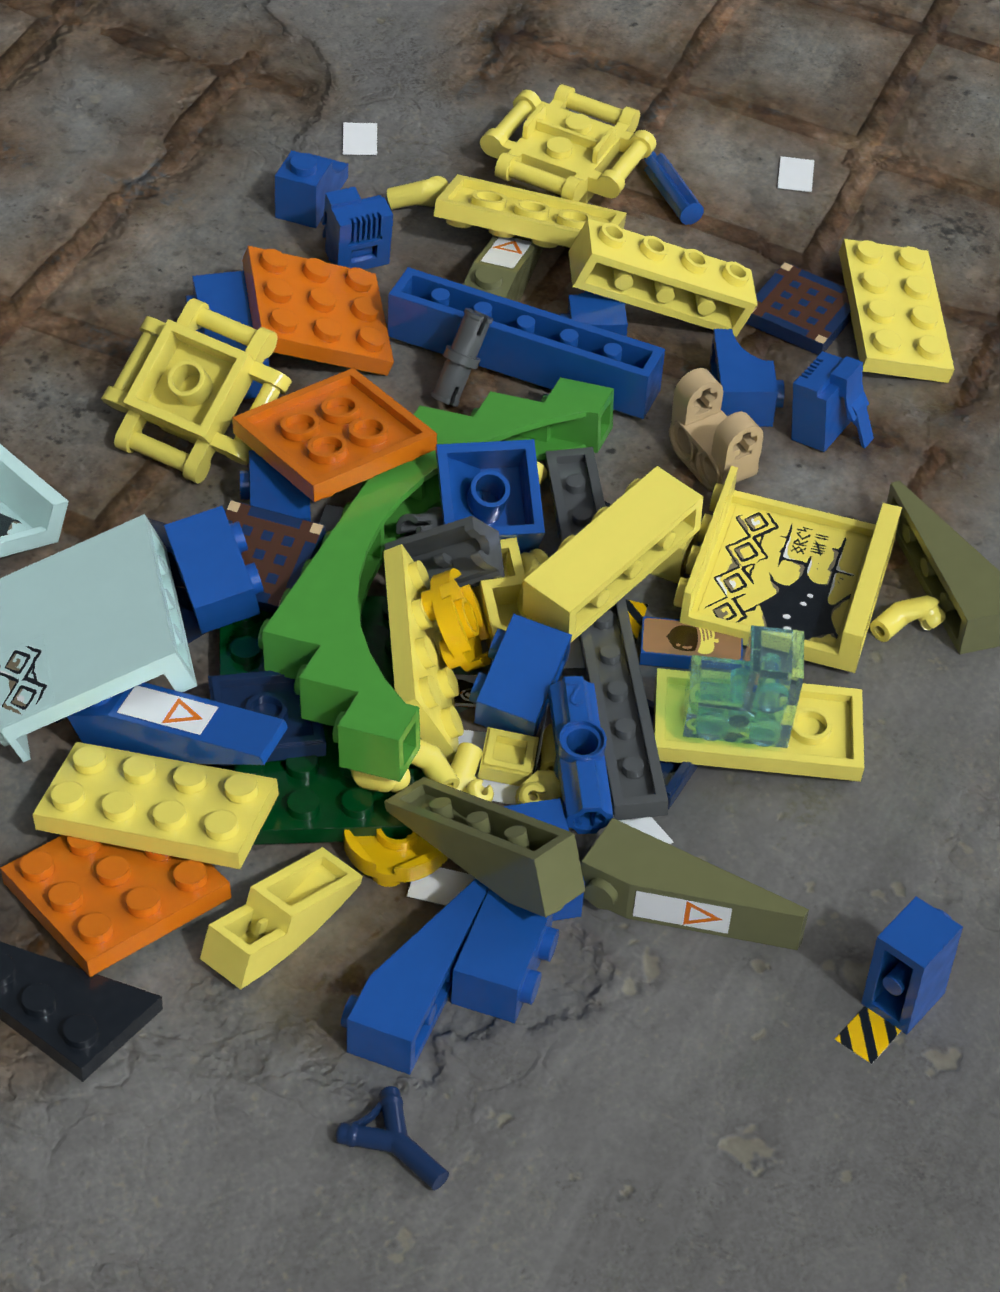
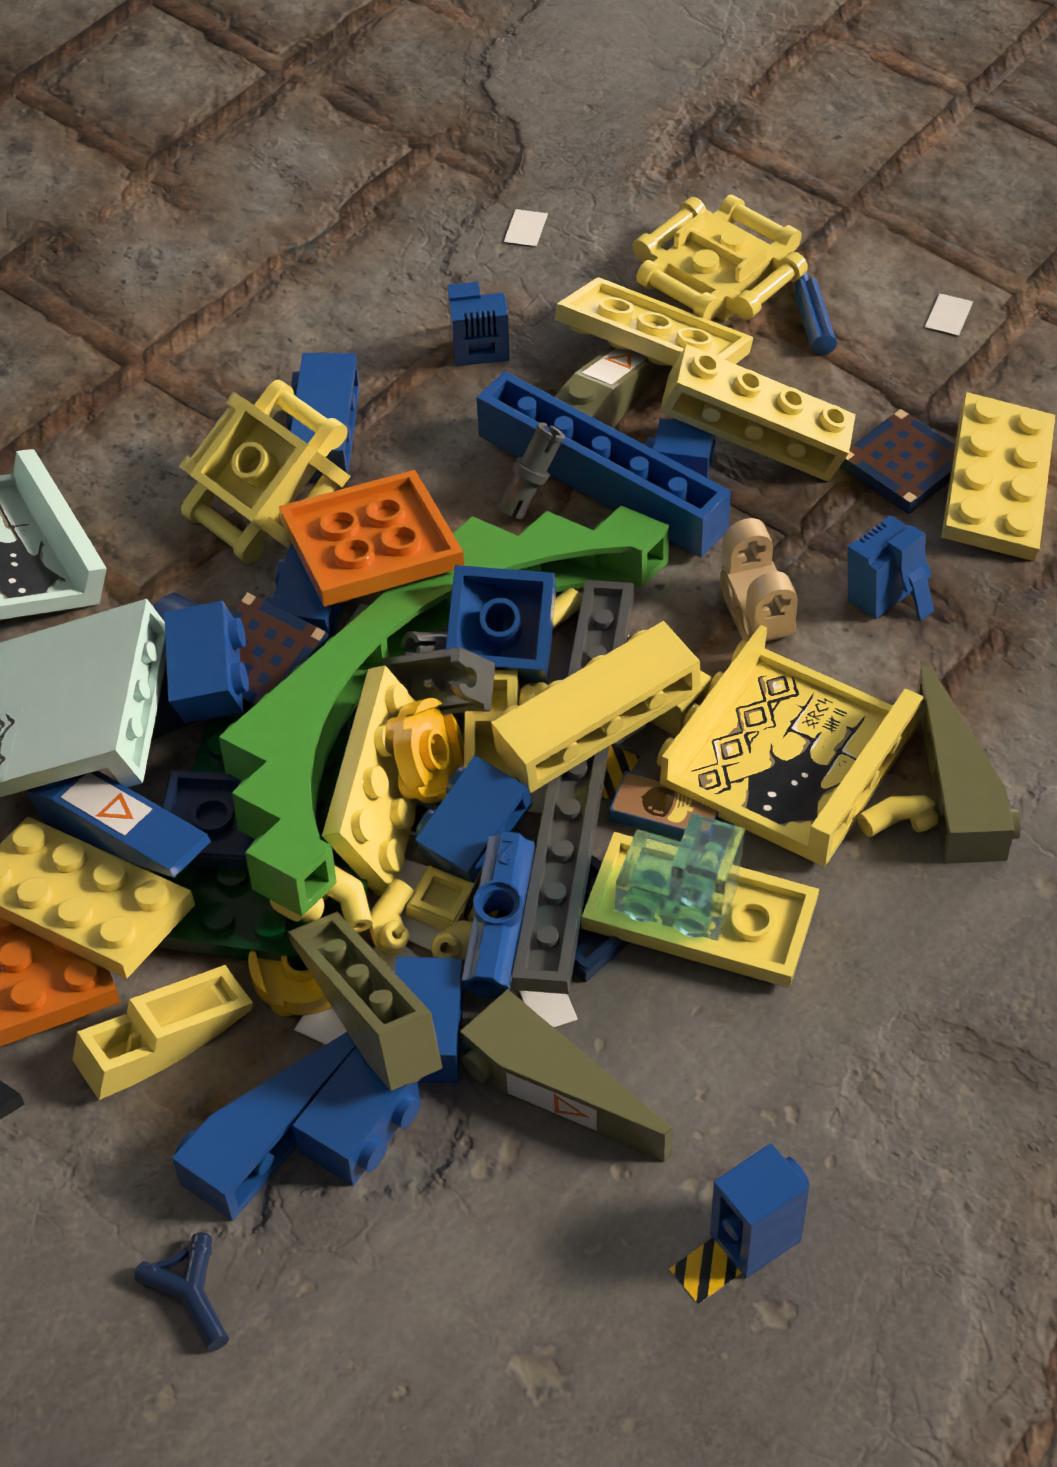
camera: 20 degrees right, 5 degrees up
(303, 185) = (451, 263): blue arch -> none
(318, 310) = (412, 403): orange plate -> none
(417, 193) = (554, 290): light yellow arm -> none
(746, 380) = (810, 536): blue arch -> none

